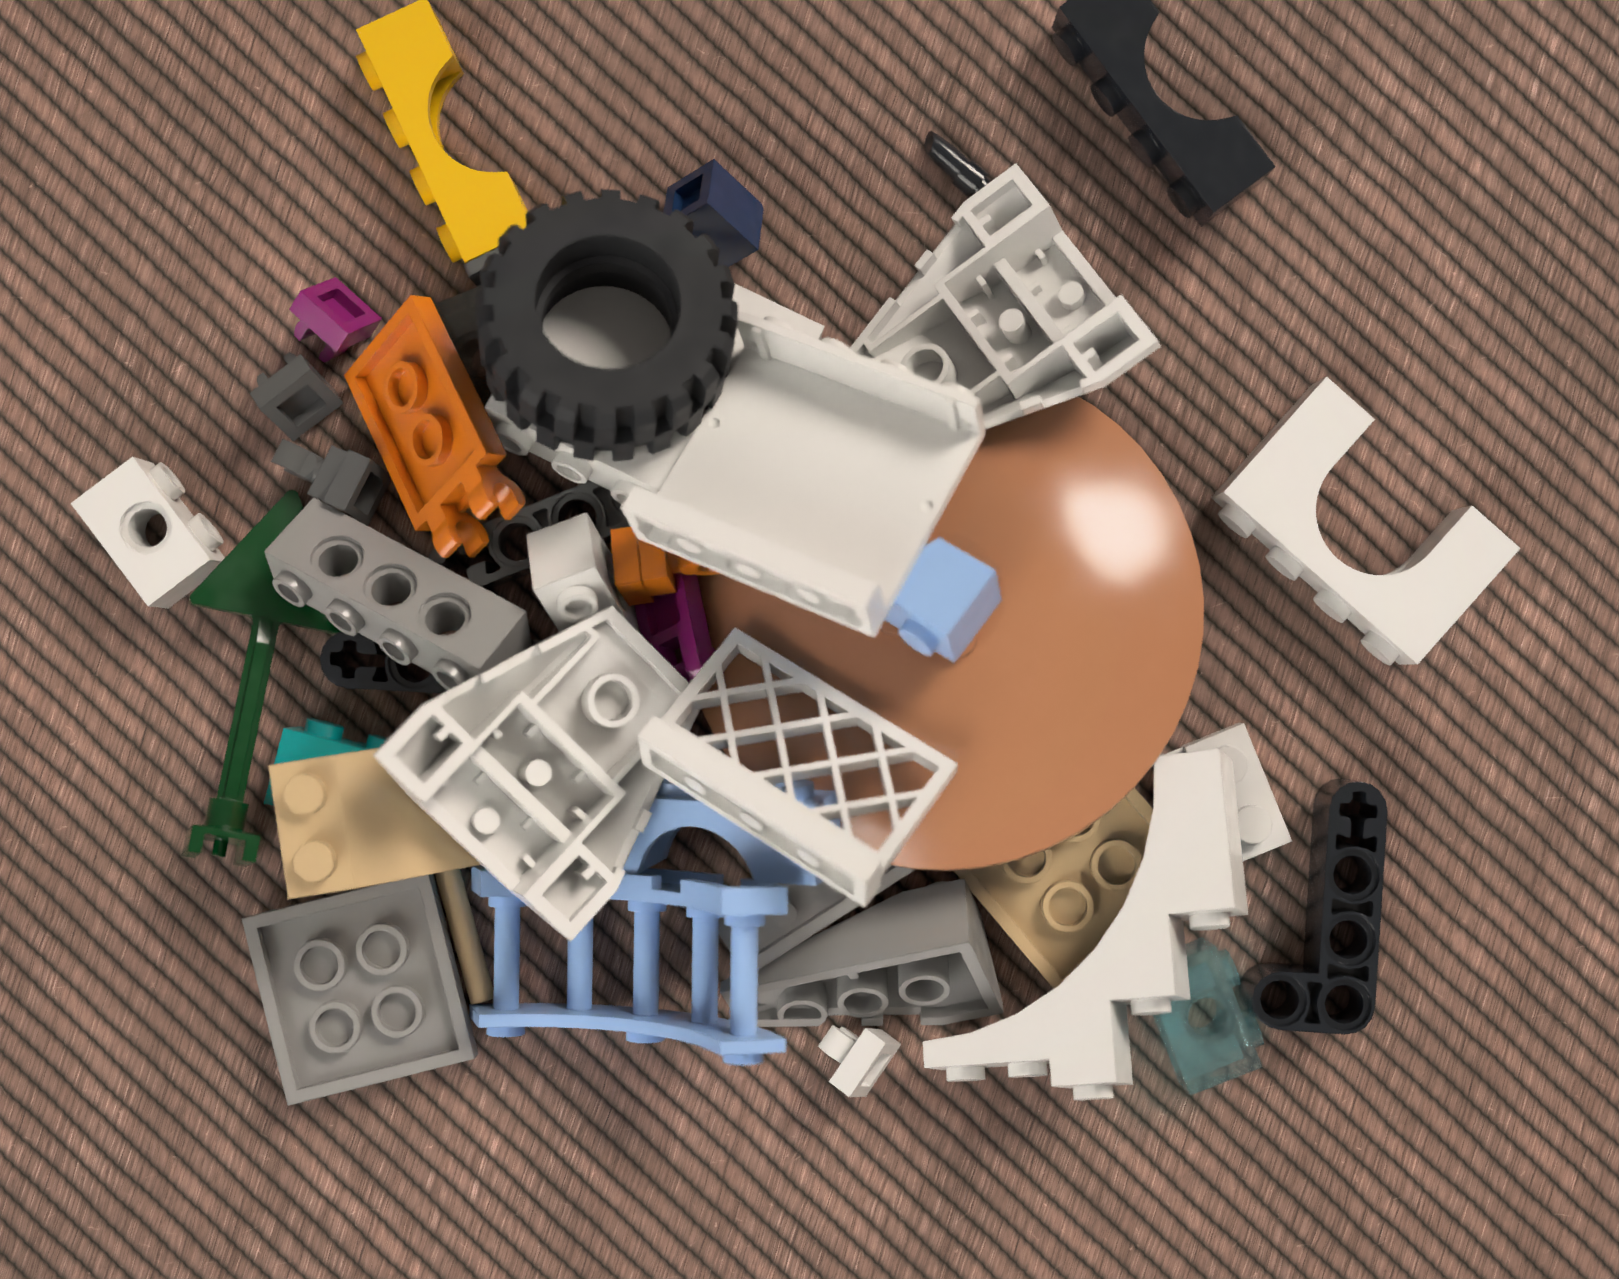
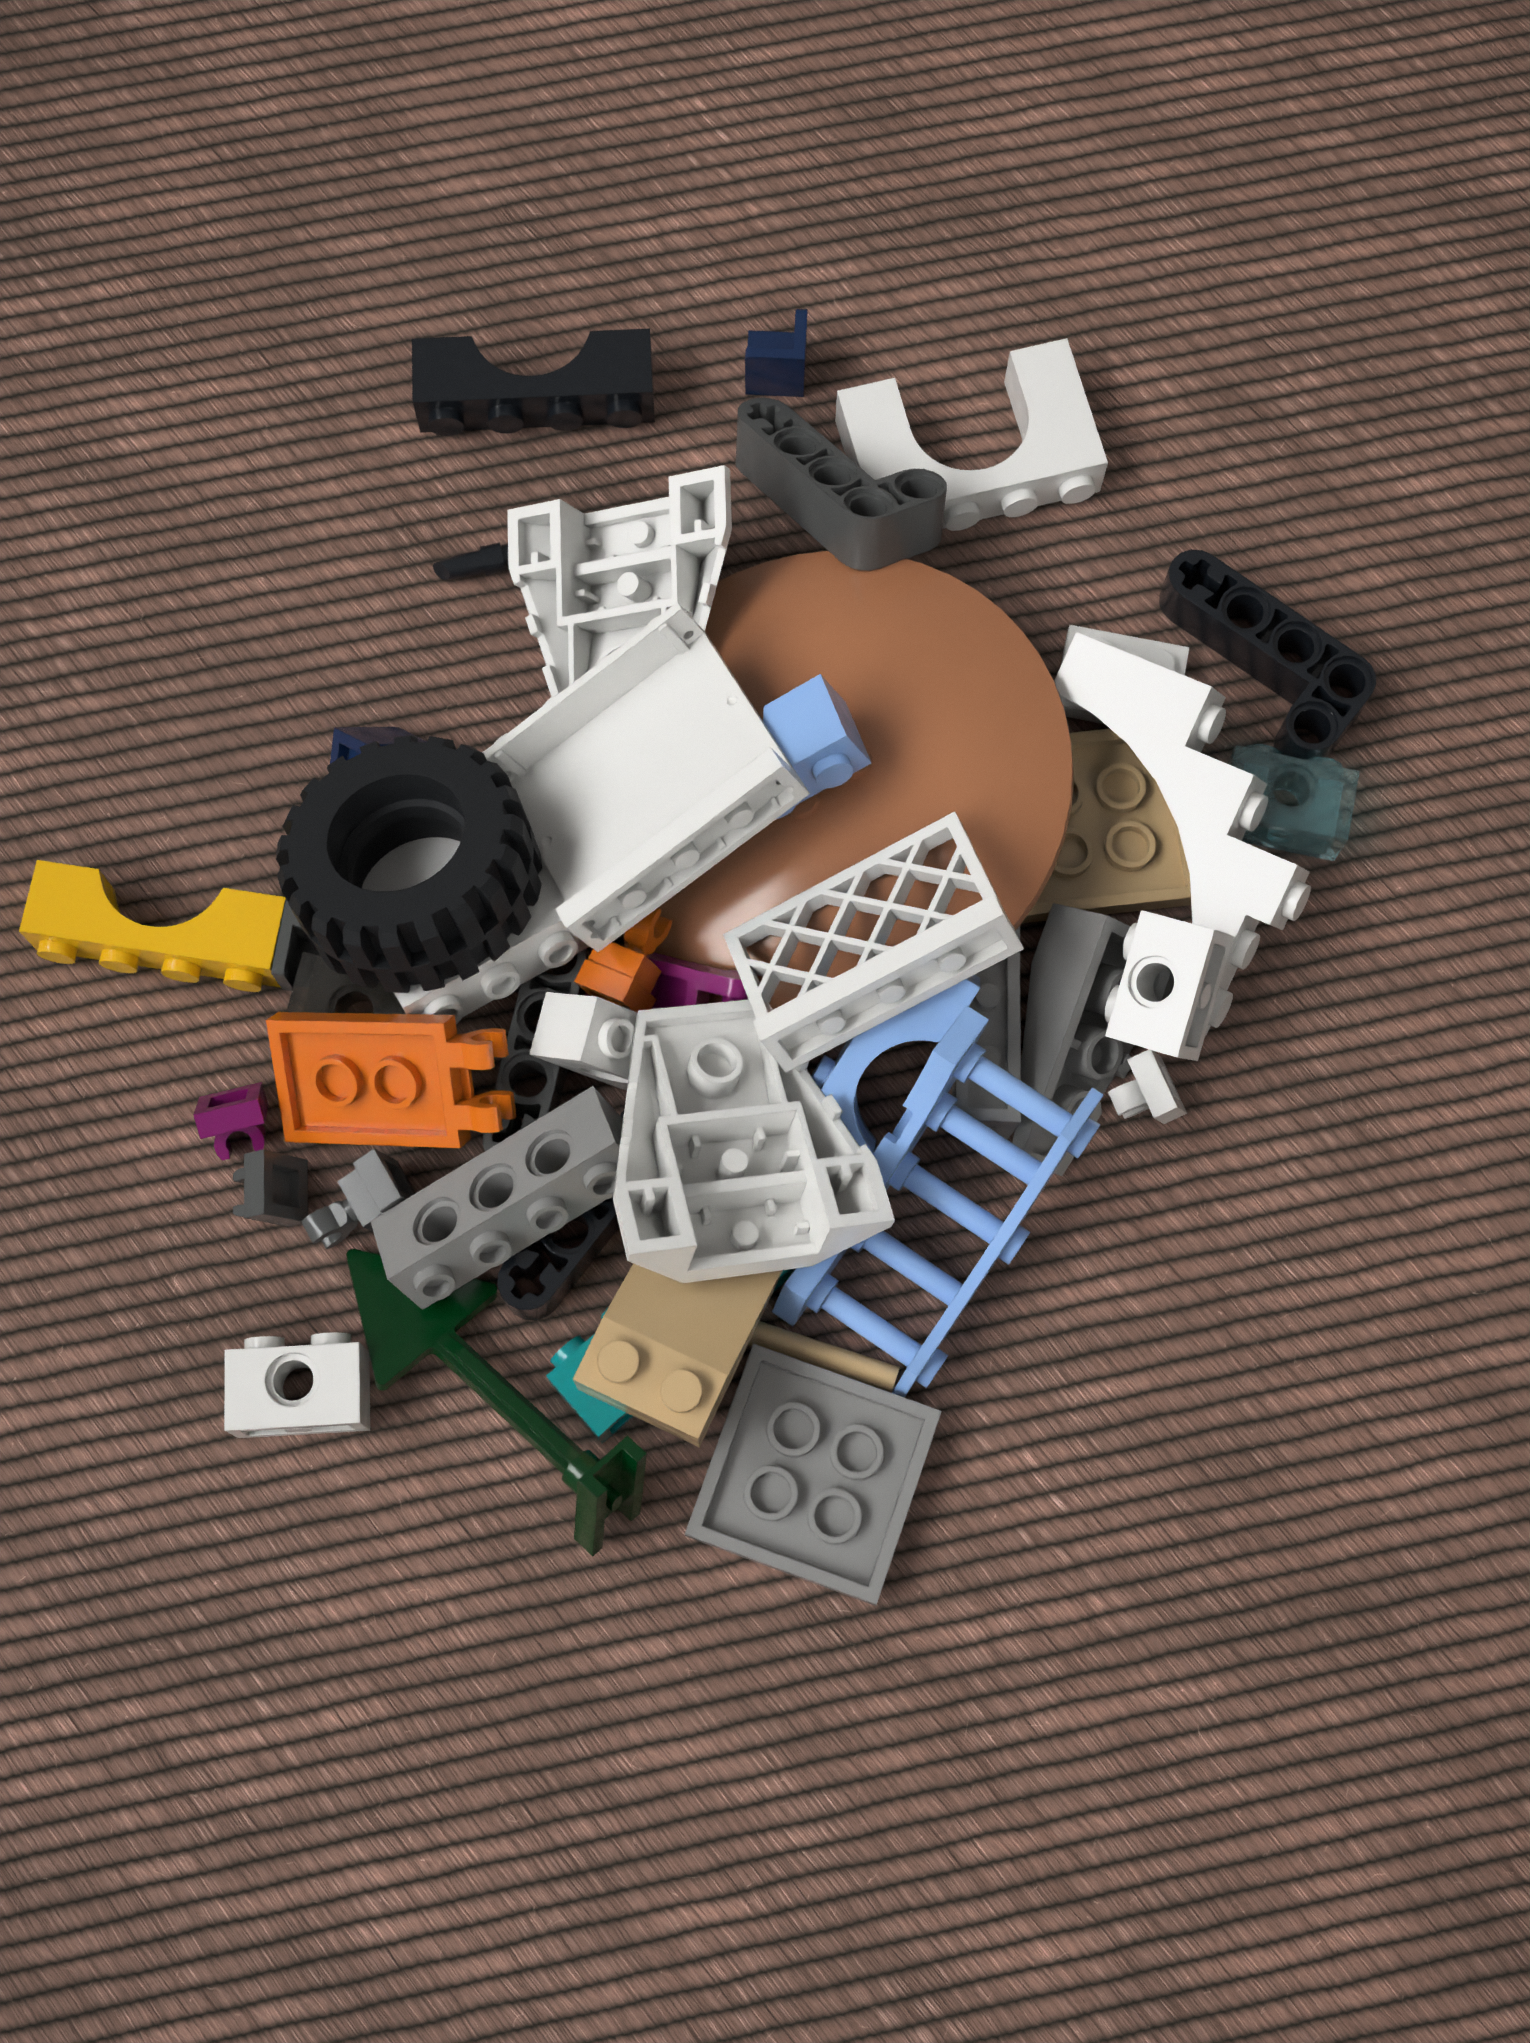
camera: 60 degrees left, 15 degrees down
(980, 1036) = (1197, 963): none -> white brick
(1203, 474) = (830, 496): none -> dark grey beam
(1331, 296) = (777, 360): none -> dark blue panel

